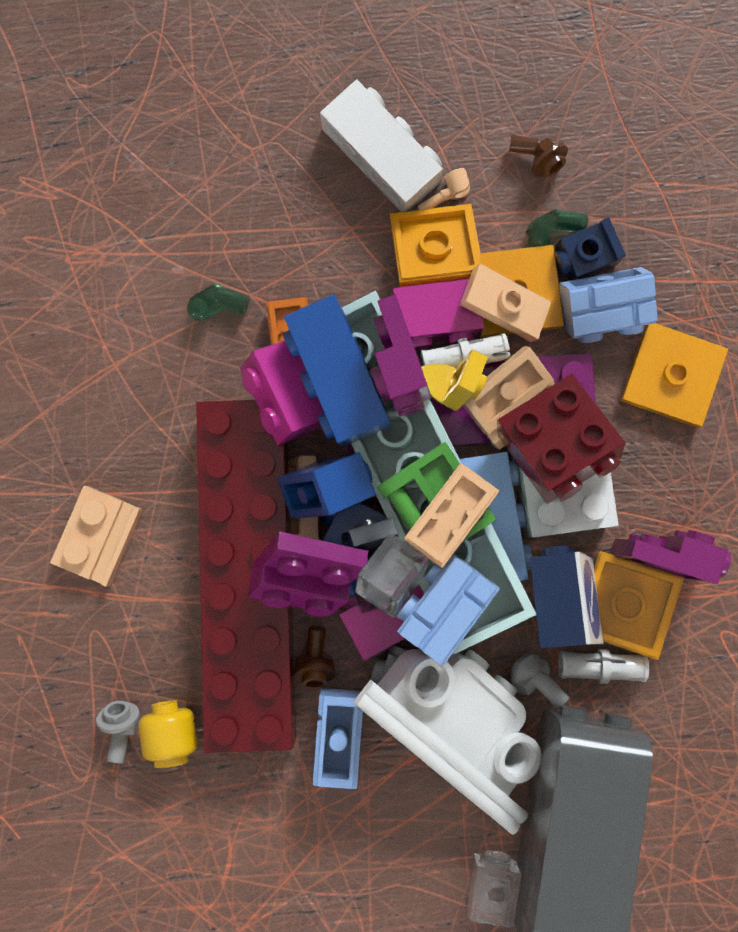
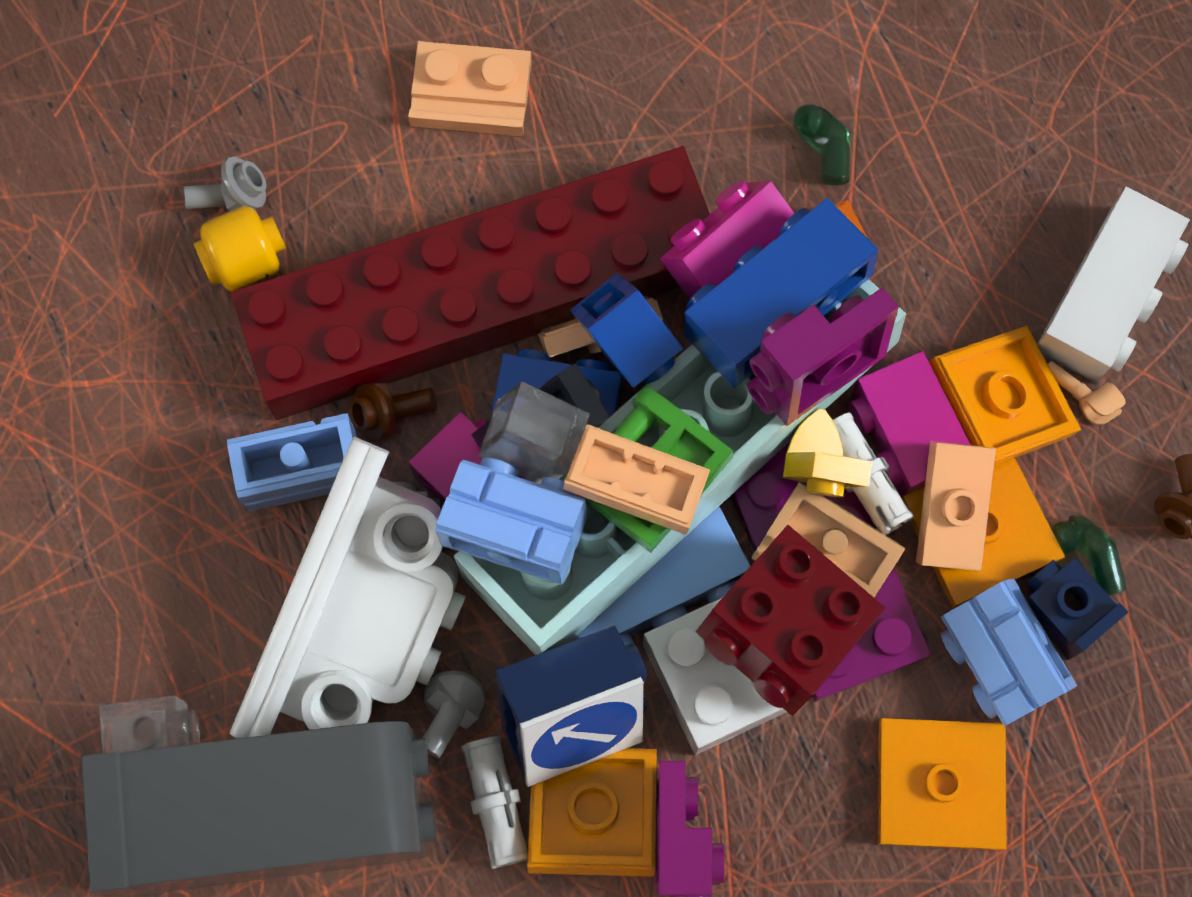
camera: 70 degrees right, 10 degrees down
(305, 574) = (501, 332): magenta plate -> none

